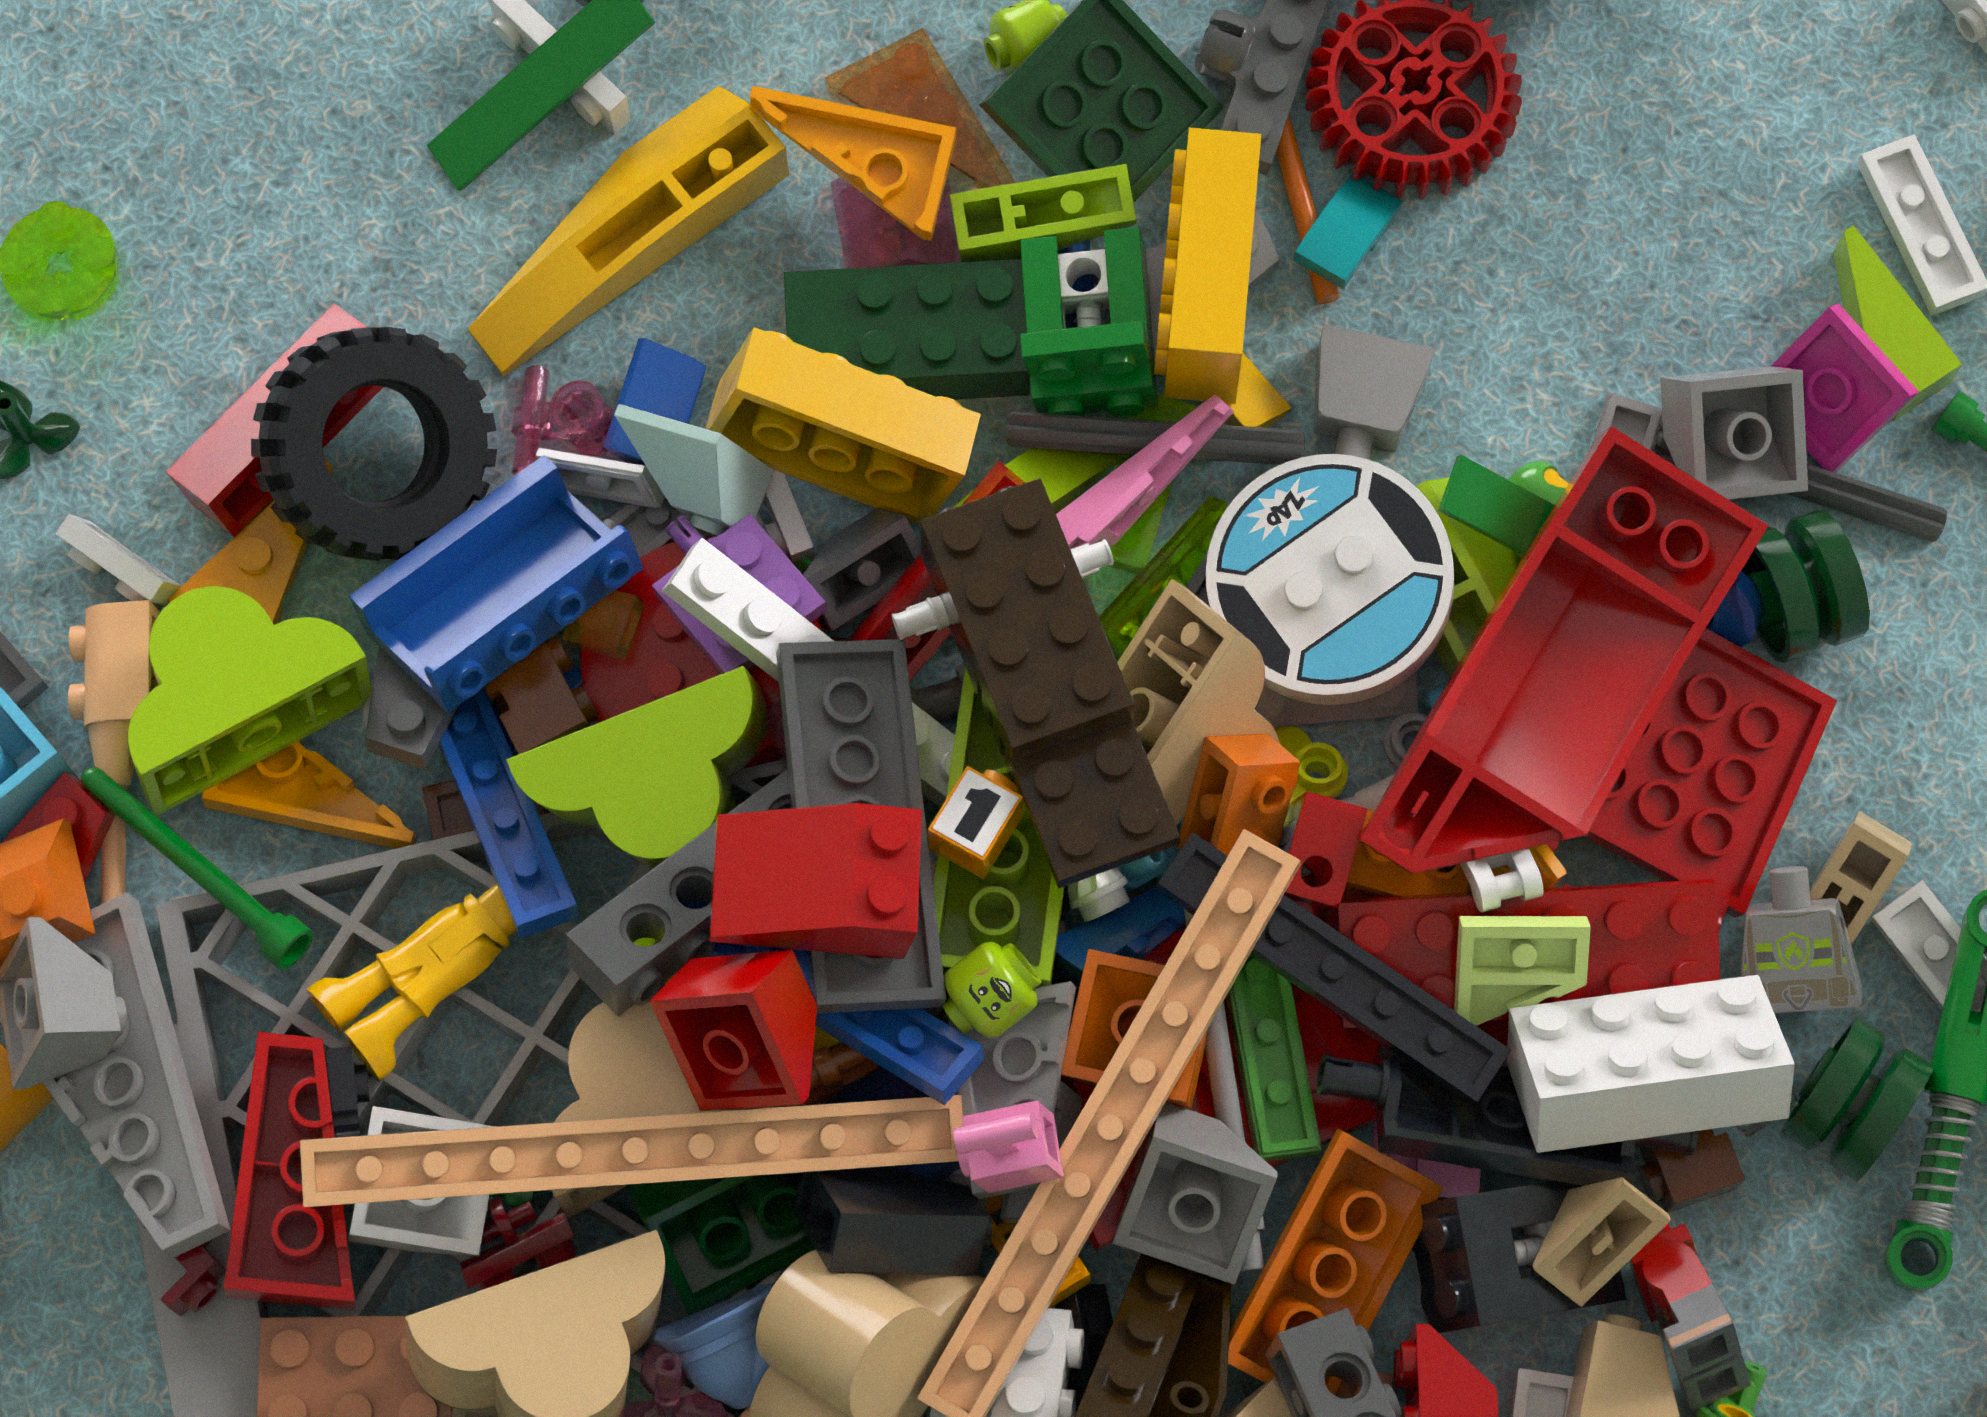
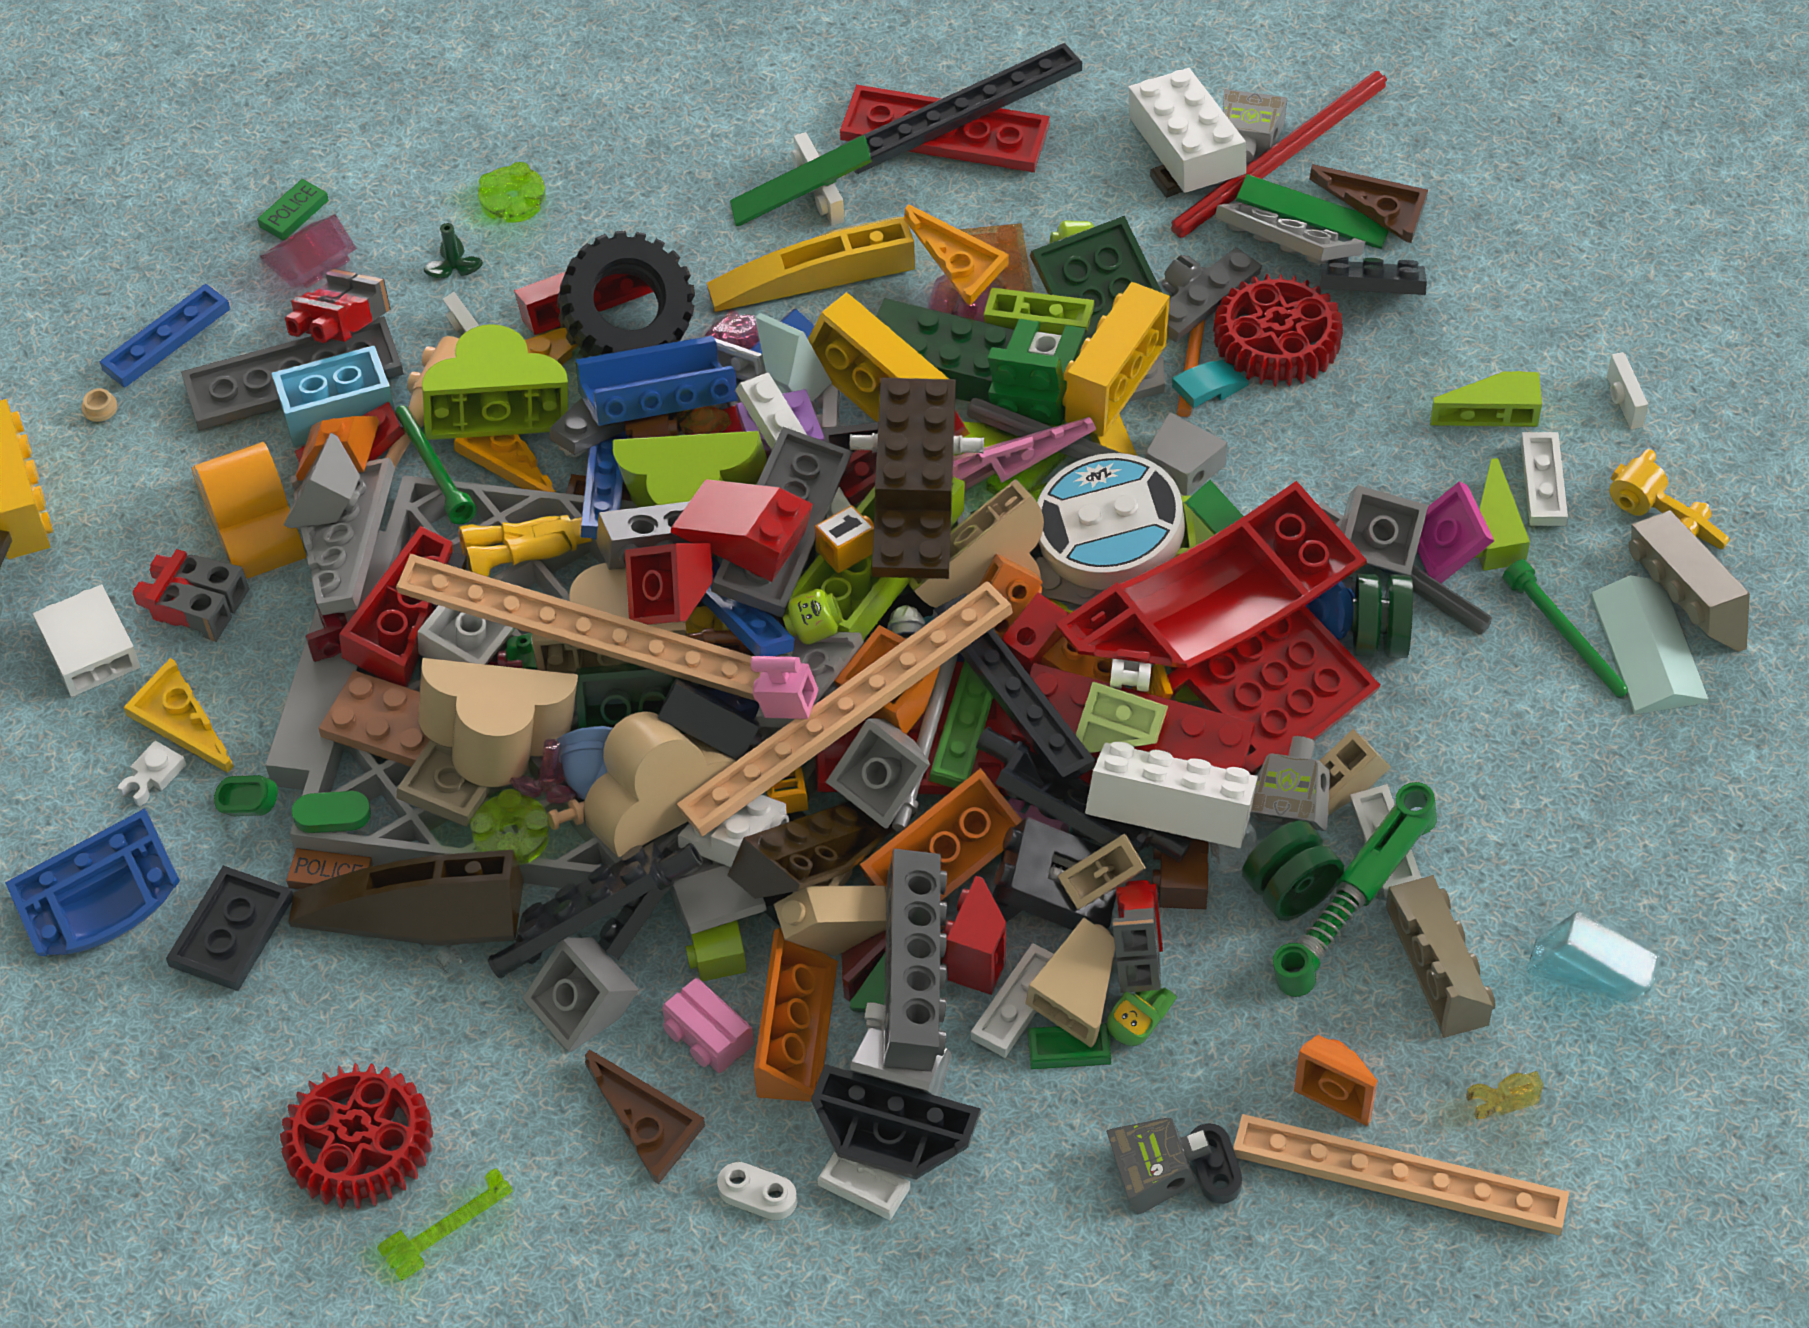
camera: 25 degrees right, 20 degrees down
(1811, 100) = (1497, 400): none -> lime slope

